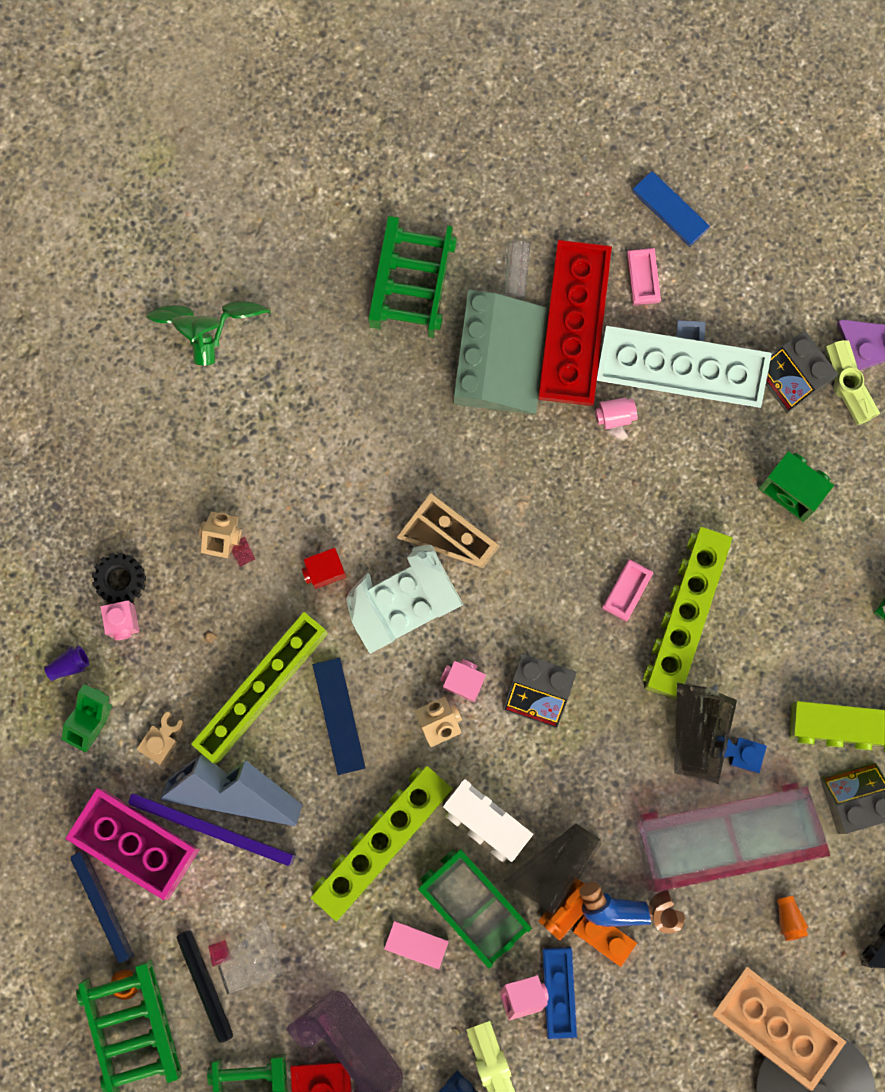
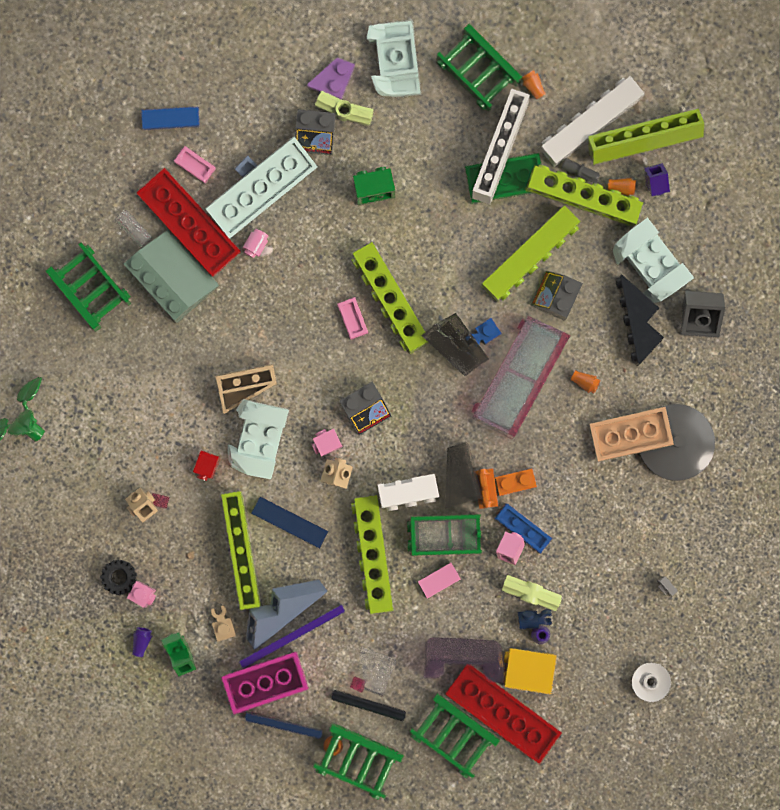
camera: 55 degrees left, 5 degrees up
(613, 912) = (503, 470): piece -> none

